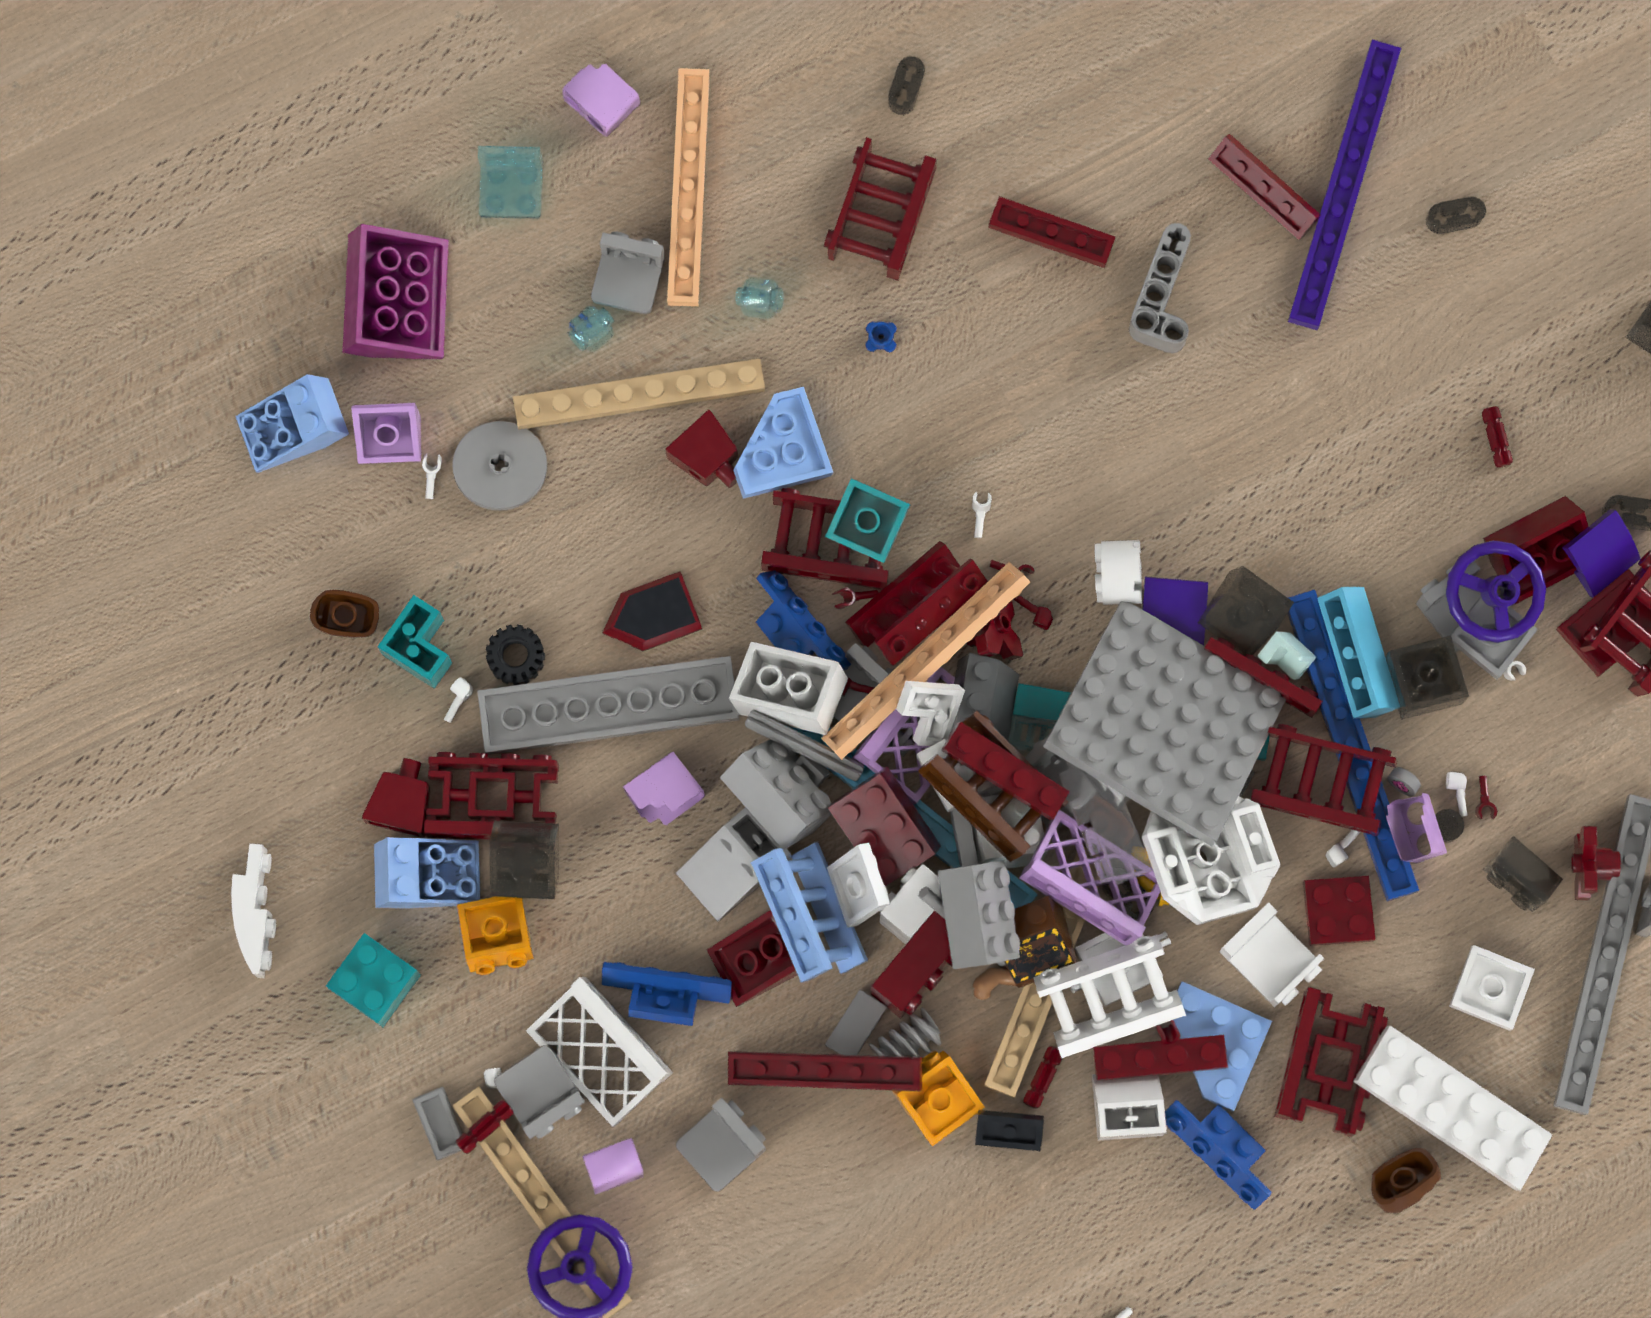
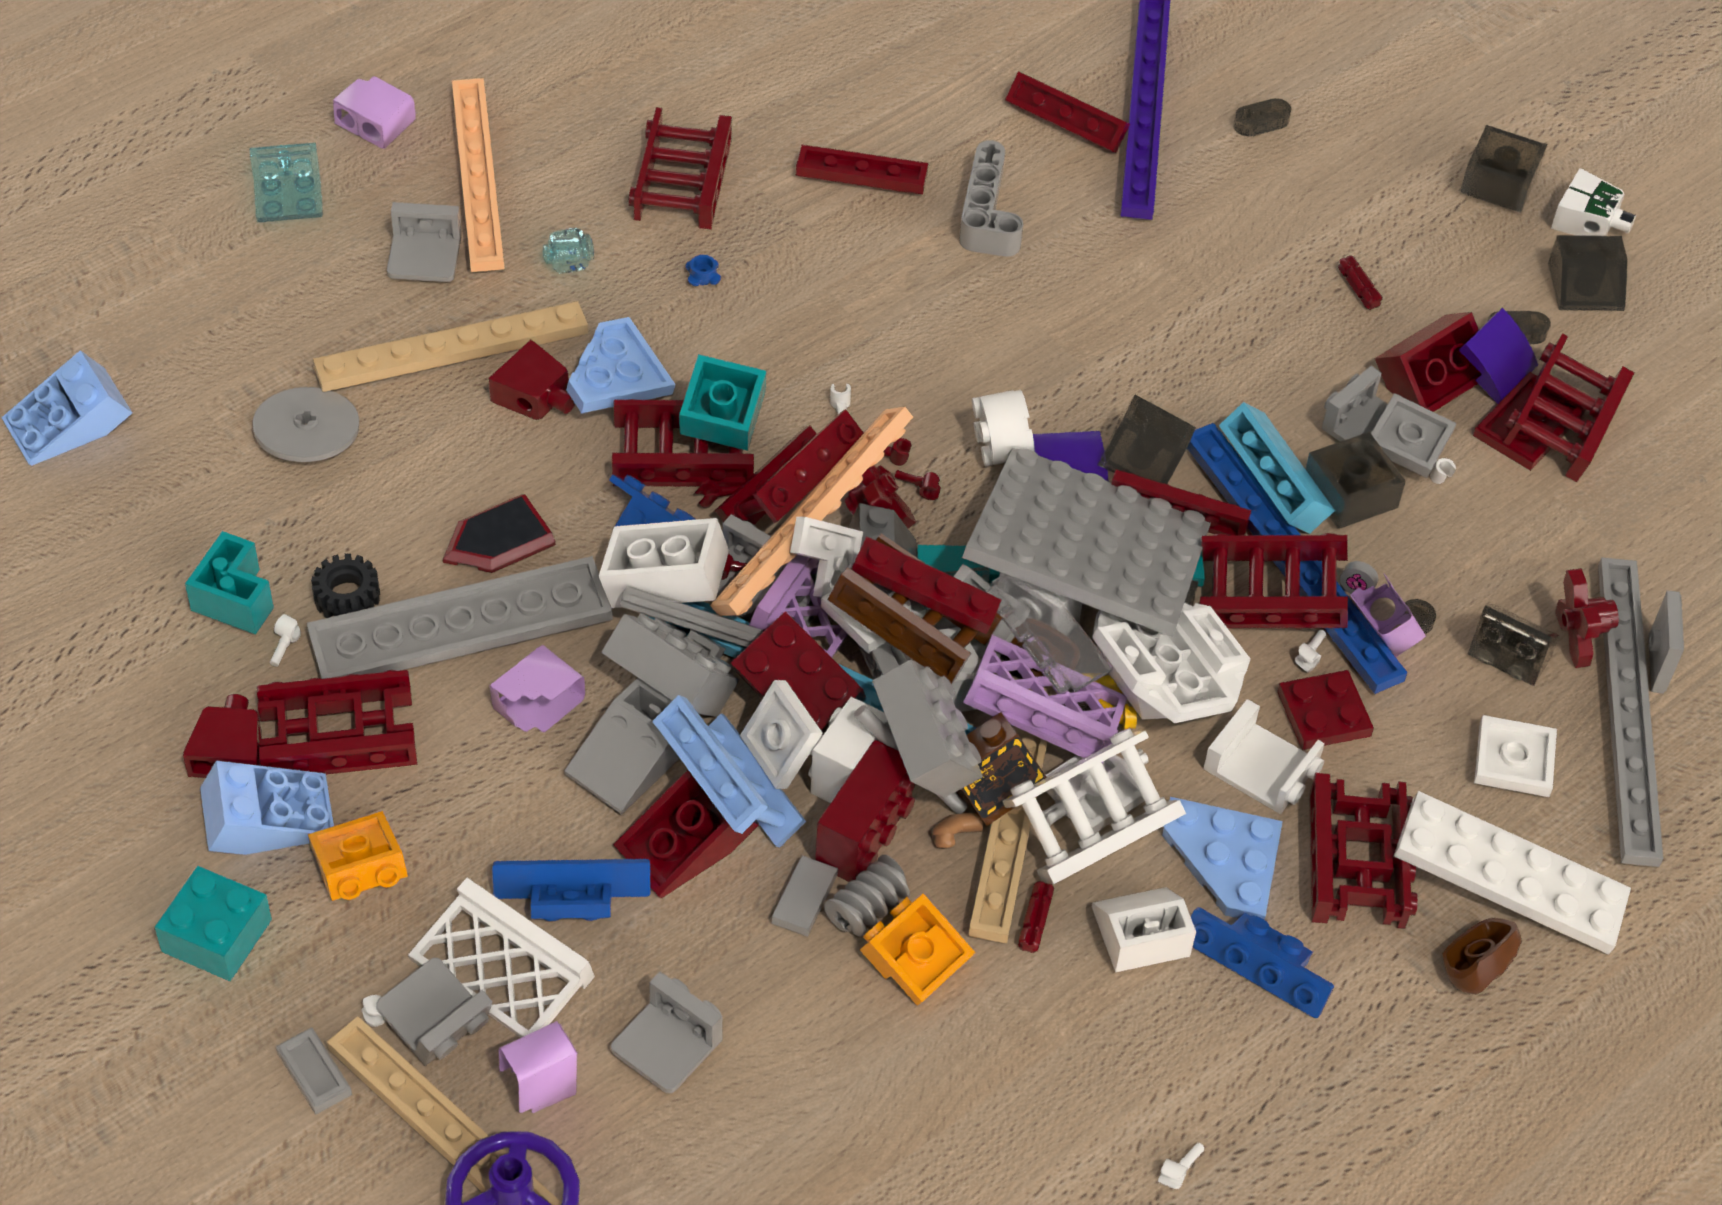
camera: 15 degrees left, 25 degrees down
(251, 923) = (57, 873): white slope -> none
(345, 614) = (143, 569): reddish brown piece -> none
(387, 433) = (175, 402): lavender slope -> none
(395, 294) = (171, 289): magenta slope -> none
(431, 475) = (229, 442): white hand -> none
(484, 1126) = (370, 1054): dark red axle -> none
(524, 859) = (383, 768): clear smoke brick -> none
(591, 328) = (391, 293): clear light blue head -> none
(825, 1071) = (778, 934): dark red tile -> none
(900, 83) = (682, 75): clear smoke beam -> none
(1009, 1130) = (1010, 972): black plate -> none
(1160, 1058) = (1166, 868): dark red plate -> none
(1169, 1034) = (1170, 840): dark red hand -> none
(1288, 654) = (1201, 476): light aqua panel -> none
(1457, 782) = (1416, 574): white hand -> none
(1485, 799) = (1451, 589): dark red hand -> none
(1488, 589) = (1405, 386): dark purple piece -> none

